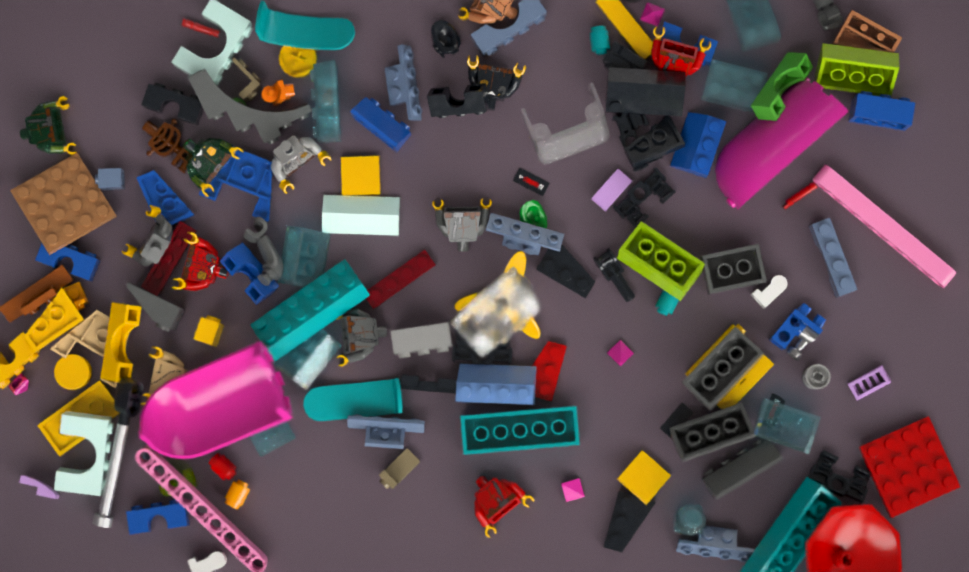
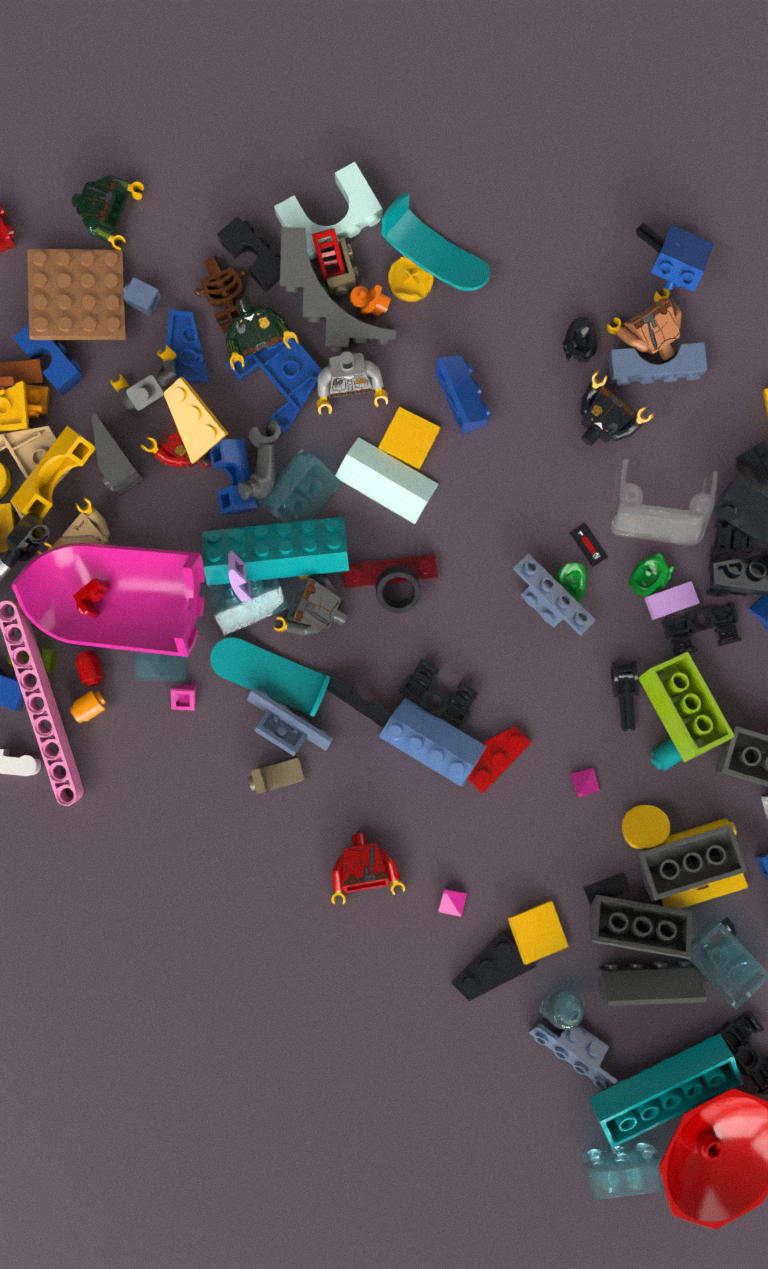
camera: 25 degrees right, 0 degrees up
(164, 268) = (143, 422): dark red plate -> none
(195, 413) = (89, 594): none -> red bracket
(200, 248) = (194, 420): none -> yellow wing
(201, 28) = (326, 191): red wheel -> none
(209, 330) = (155, 514): yellow brick -> none
(237, 88) = (334, 272): none -> red slope
(294, 342) = (237, 577): none -> lavender slope
(301, 450) = (184, 697): none -> dark pink slope
(326, 102) = (417, 338): clear light blue slope -> none
(402, 83) = (508, 364): sand blue bracket -> none
(420, 300) = (398, 606): none -> black tyre
(421, 340) = (377, 649): light grey piece -> none
(444, 104) = (541, 409): black arch -> none
(462, 223) = (491, 548): dark grey torso -> none
(499, 309) = (481, 663): clear brick -> none
(520, 430) = (431, 807): teal brick -> none
(566, 271) = (575, 661): black wing -> none
(586, 180) = (650, 575): none -> green hat
(599, 40) = (746, 432): teal brick -> none
(679, 361) = (645, 827): none -> yellow tile

